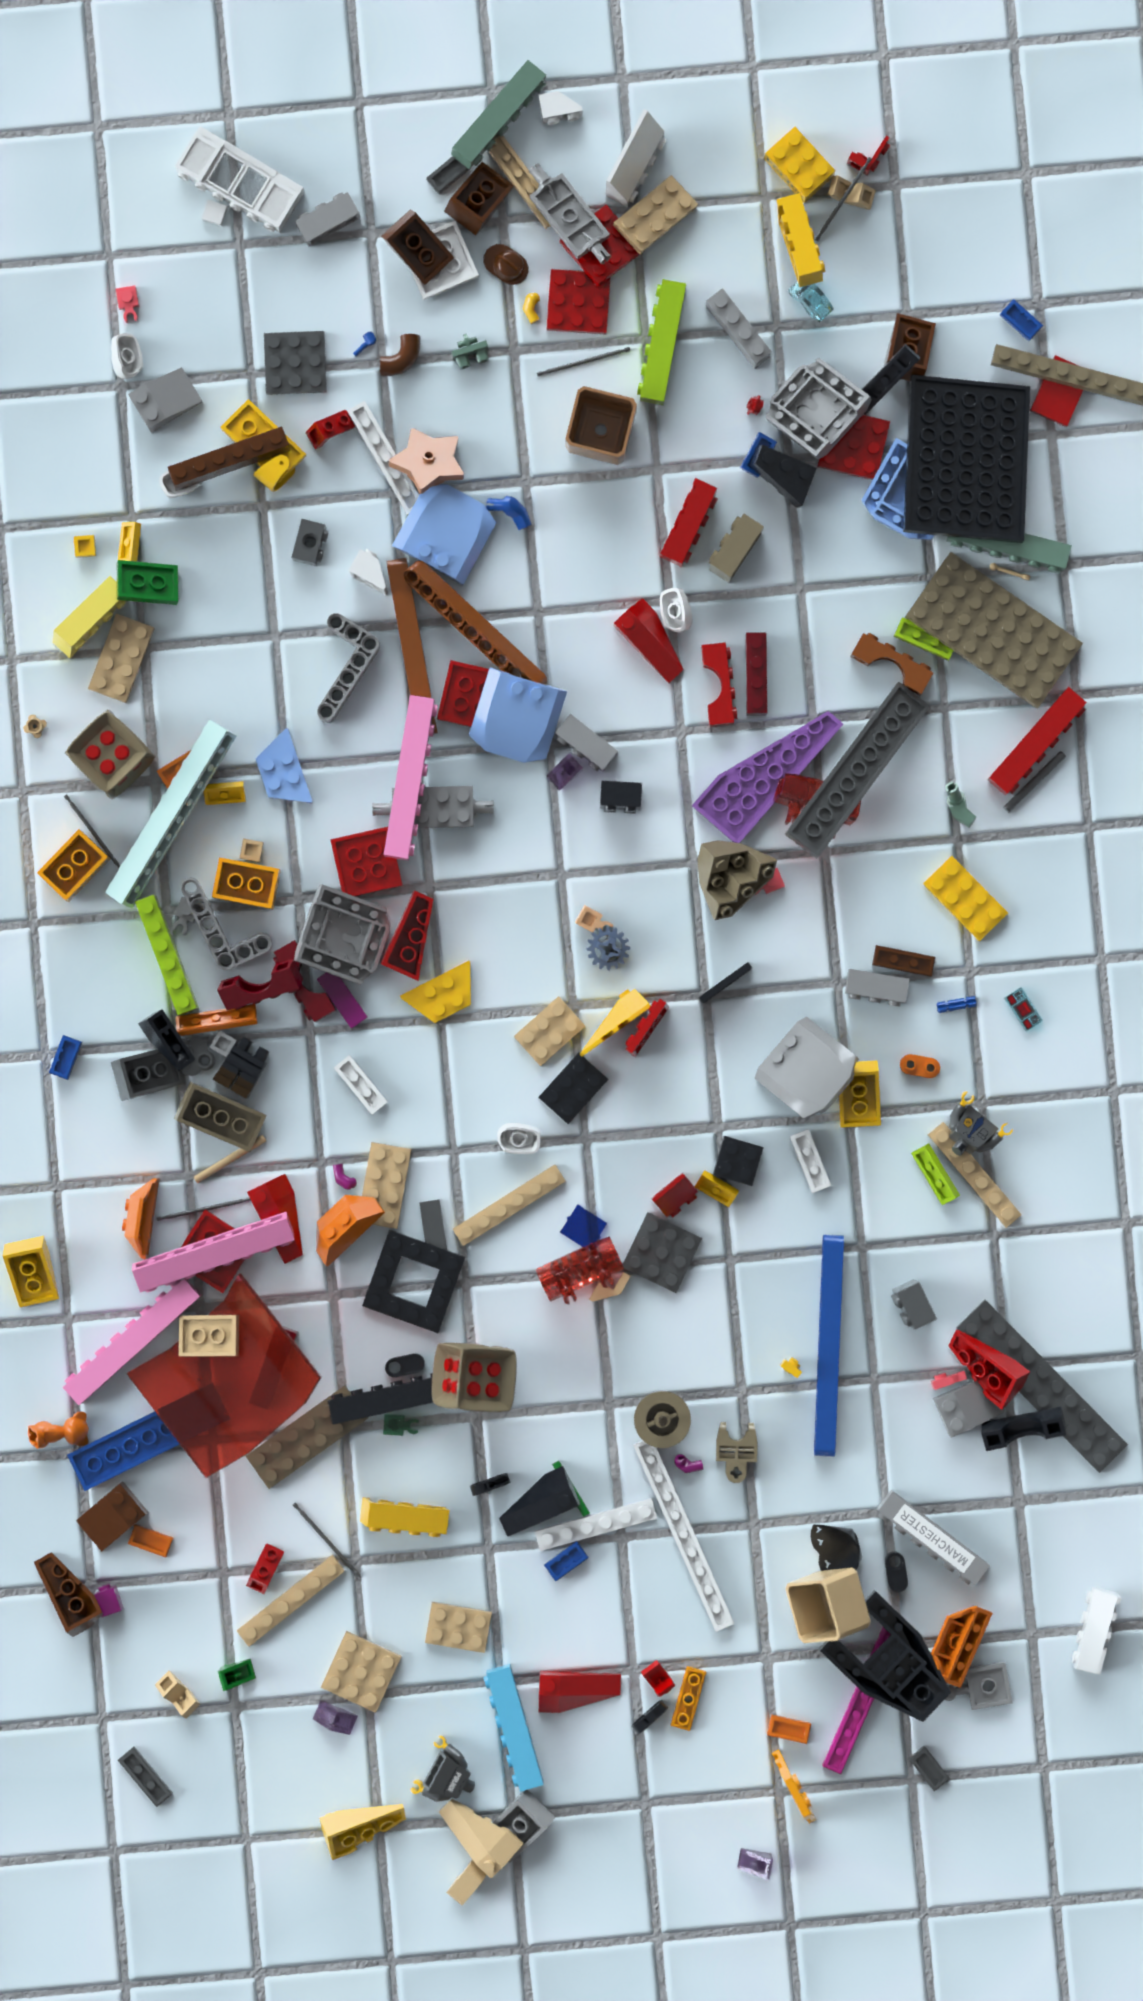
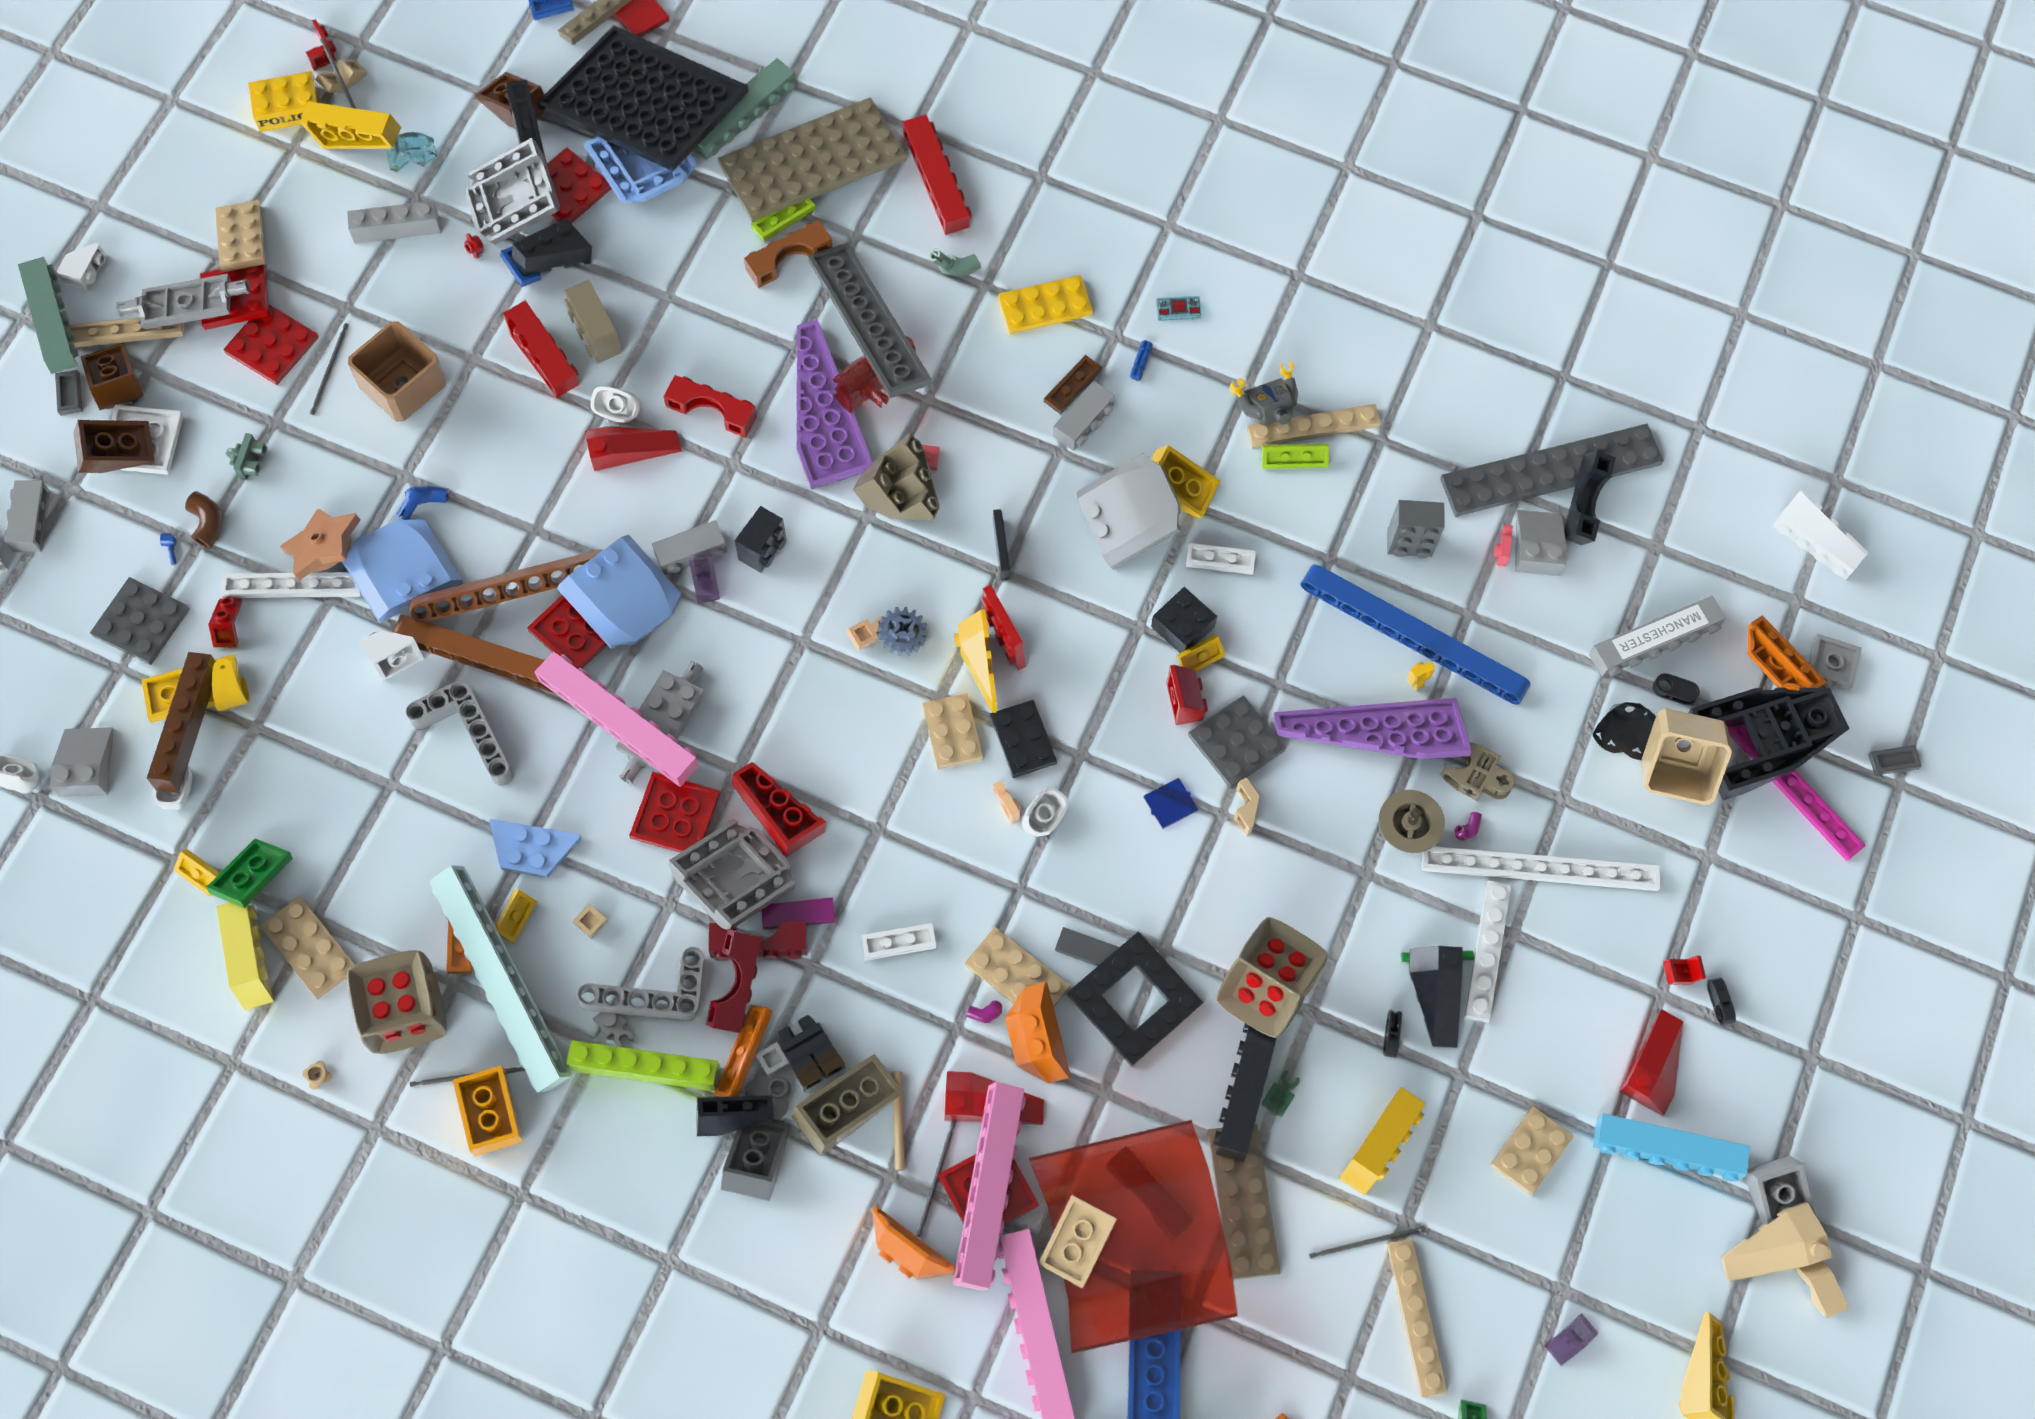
camera: 70 degrees left, 20 degrees down
(65, 1057) = (686, 1237): blue plate -> none
(84, 546) = (170, 919): yellow plate -> none
(246, 883) = (620, 941): light orange brick -> none
(265, 1568) = (1369, 1325): red bracket -> none
(307, 530) = (328, 709): dark grey brick -> none
(361, 1671) = (1532, 1282): tan plate -> none
(409, 1364) = (1221, 1051): black piece -> none
(442, 994) = (854, 813): yellow wing -> none
(447, 1775) = (1694, 1246): dark grey torso -> none
(505, 264) = (189, 386): reddish brown piece -> none
(509, 1205) = (1107, 863): tan plate -> none
(511, 1109) = (1010, 806): none -> light nougat plate
(529, 305) = (244, 386): yellow arm -> none
(566, 1561) = (1513, 999): blue plate -> none
(580, 1269) = (1213, 822): clear red piece -> none
(635, 159) = (178, 223): white slope -> none
(662, 343) = (357, 287): lime brick -> none
(690, 1686) = (1728, 964): light orange tile -> none
(738, 1374) = (1400, 728): none -> medium lavender wing
(755, 1863) = (1928, 974): clear purple slope -> none
(756, 673) = (704, 357): dark red arch -> none
(789, 1729) = (1794, 872): orange tile -> none
(794, 1787) = (1866, 884): light orange wing -> none
(920, 1066) = (1183, 419): orange plate -> none
(993, 566) = (780, 114): tan hinge -> none
(995, 1372) = (1515, 498): red wedge -> none
(1034, 781) = (971, 197): dark grey bar -> none

